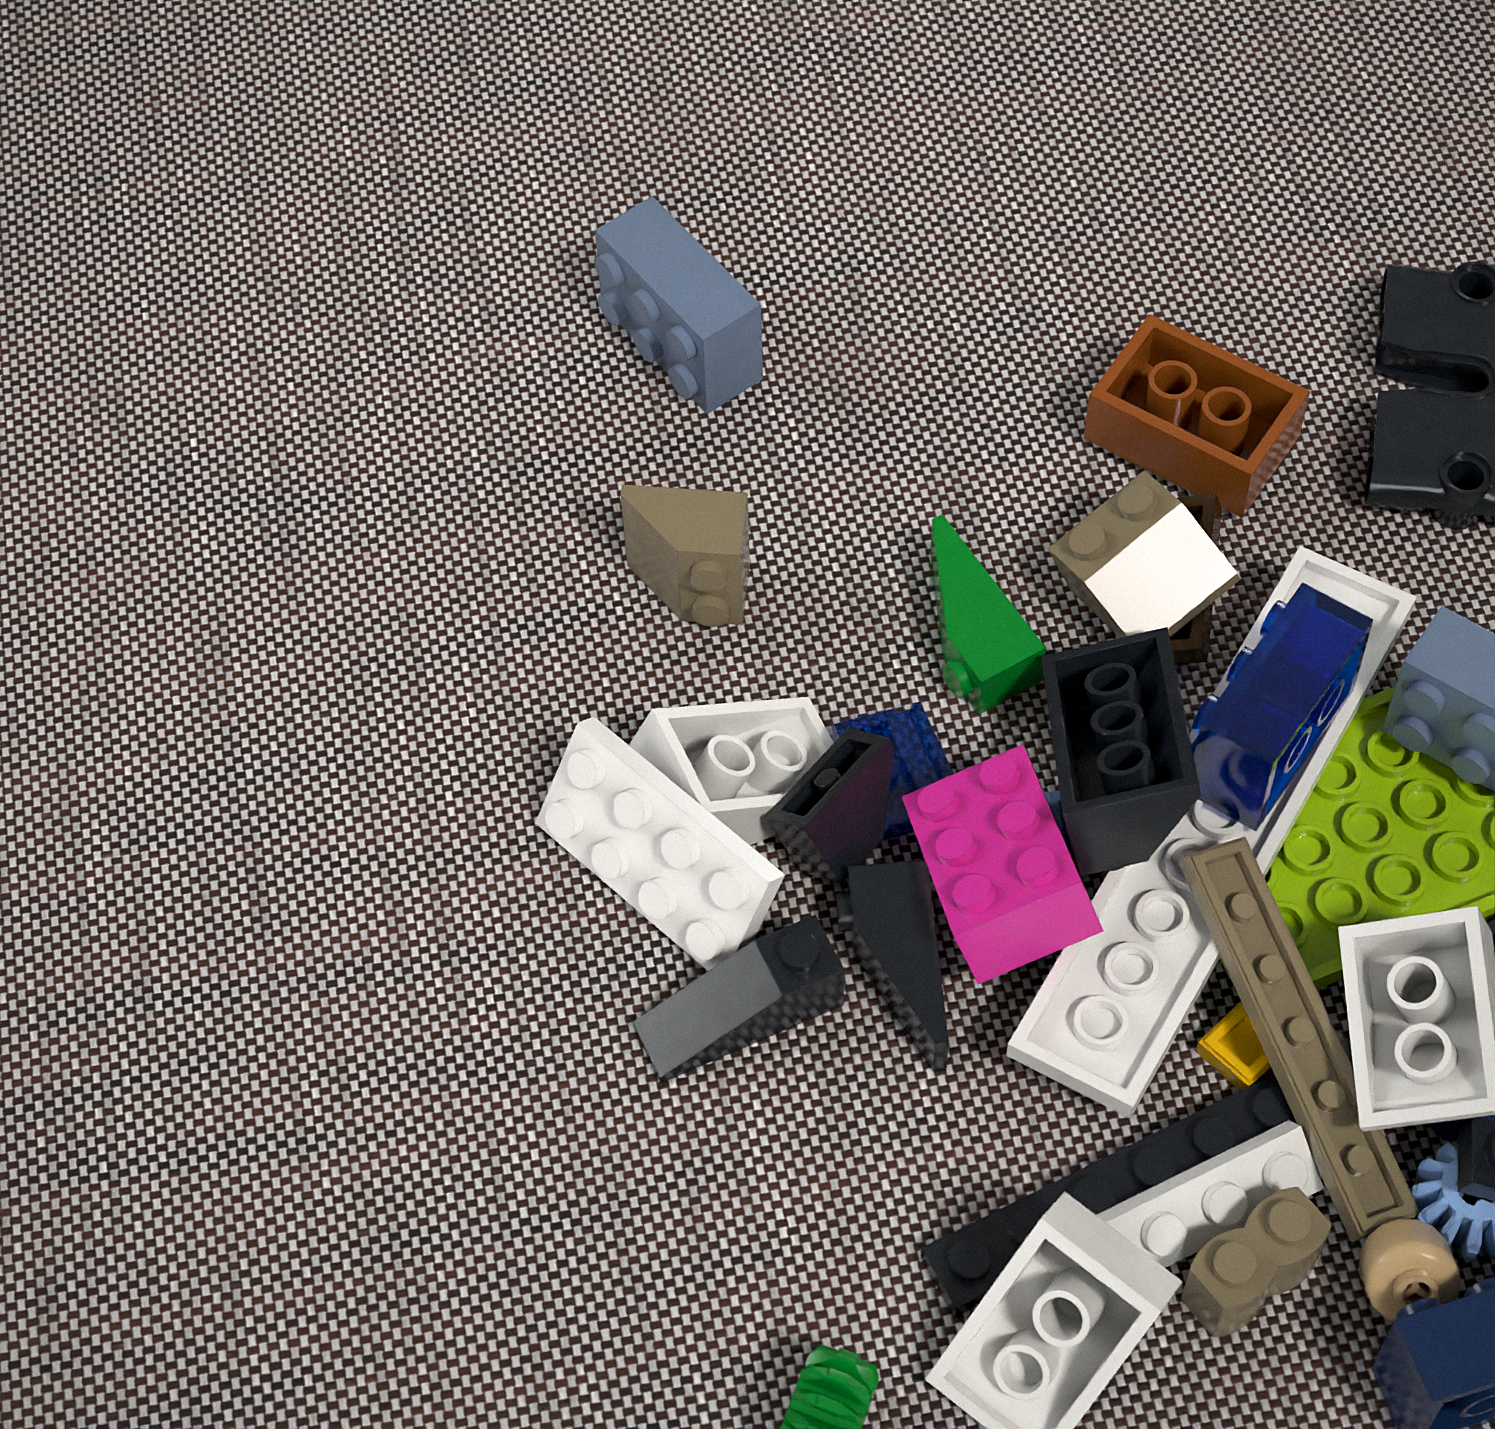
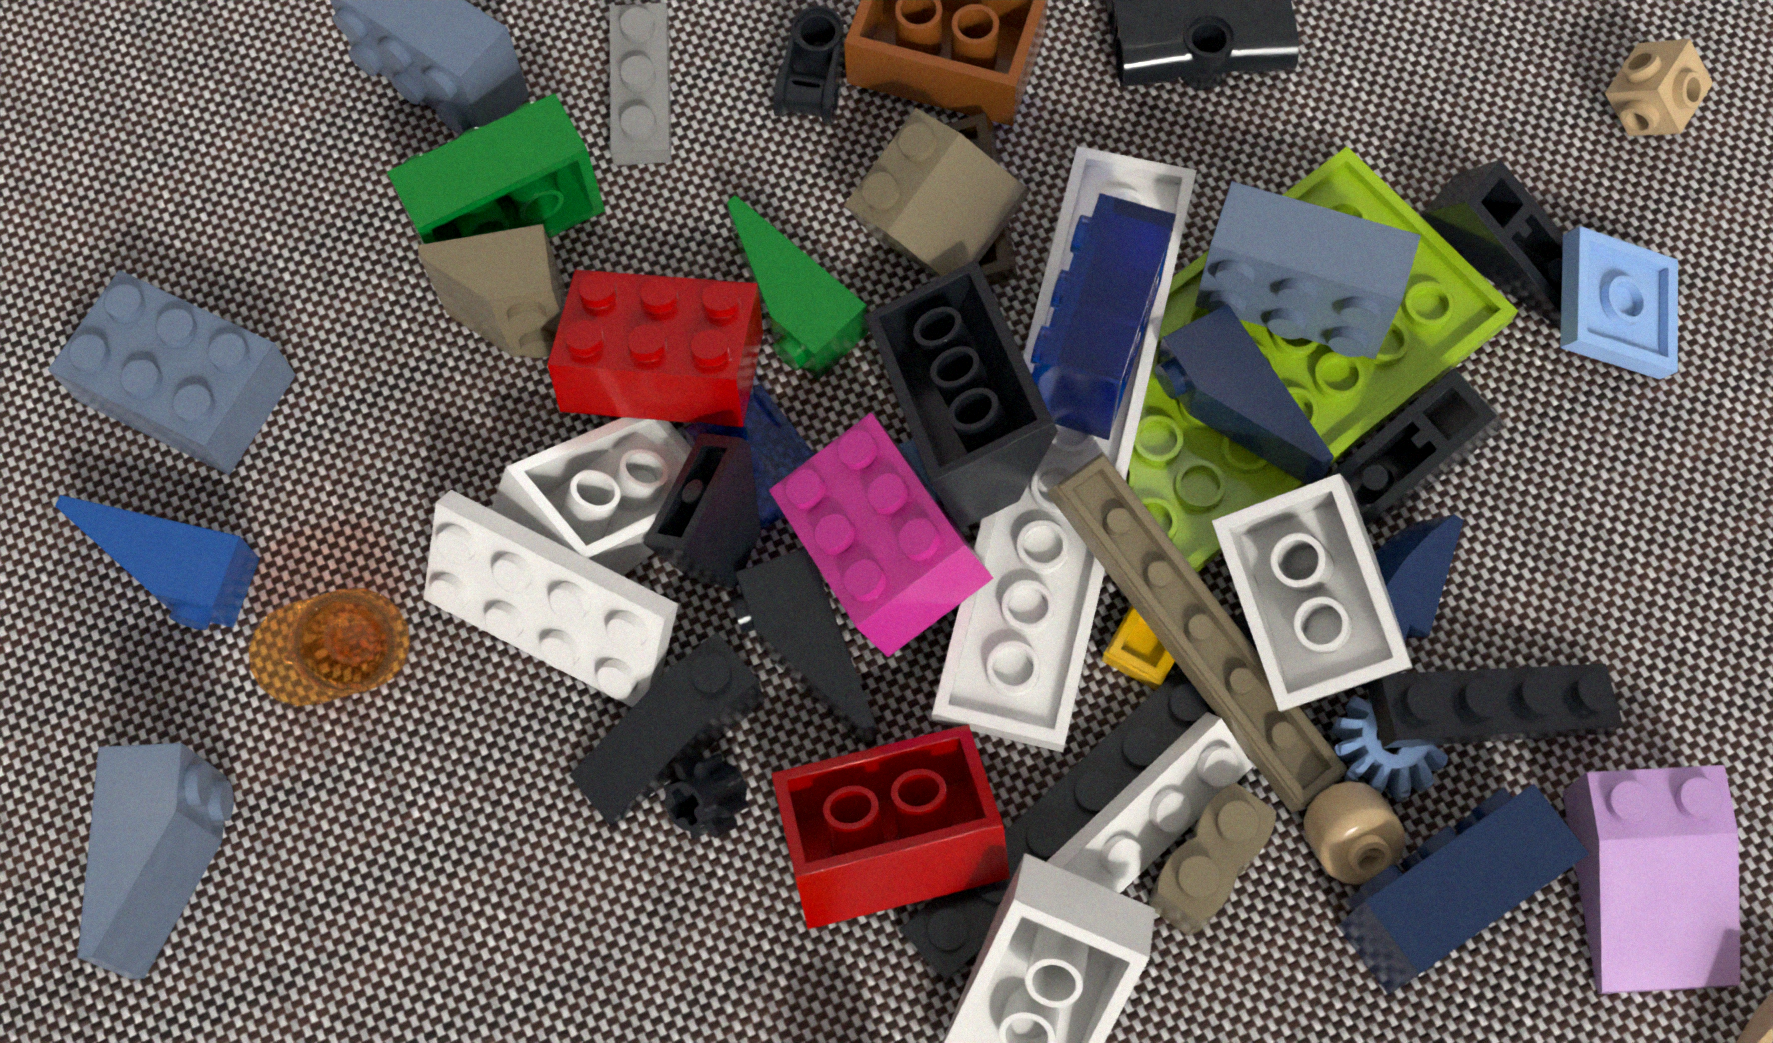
camera: 15 degrees left, 10 degrees up
(221, 976) = (148, 847): none -> sand blue slope
(314, 733) = (186, 567): none -> blue slope
(354, 554) = (173, 371): none -> sand blue brick
(437, 838) = (329, 646): none -> clear orange piece
(719, 441) = (502, 178): none -> green brick
(763, 1071) = (706, 796): none -> black gear
(827, 640) = (657, 347): none -> red brick
(875, 393) = (640, 84): none -> light grey plate
(939, 1140) = (891, 826): none -> red brick
(1051, 421) = (812, 74): none -> black piece
(1400, 818) = (1236, 392): none -> dark blue slope

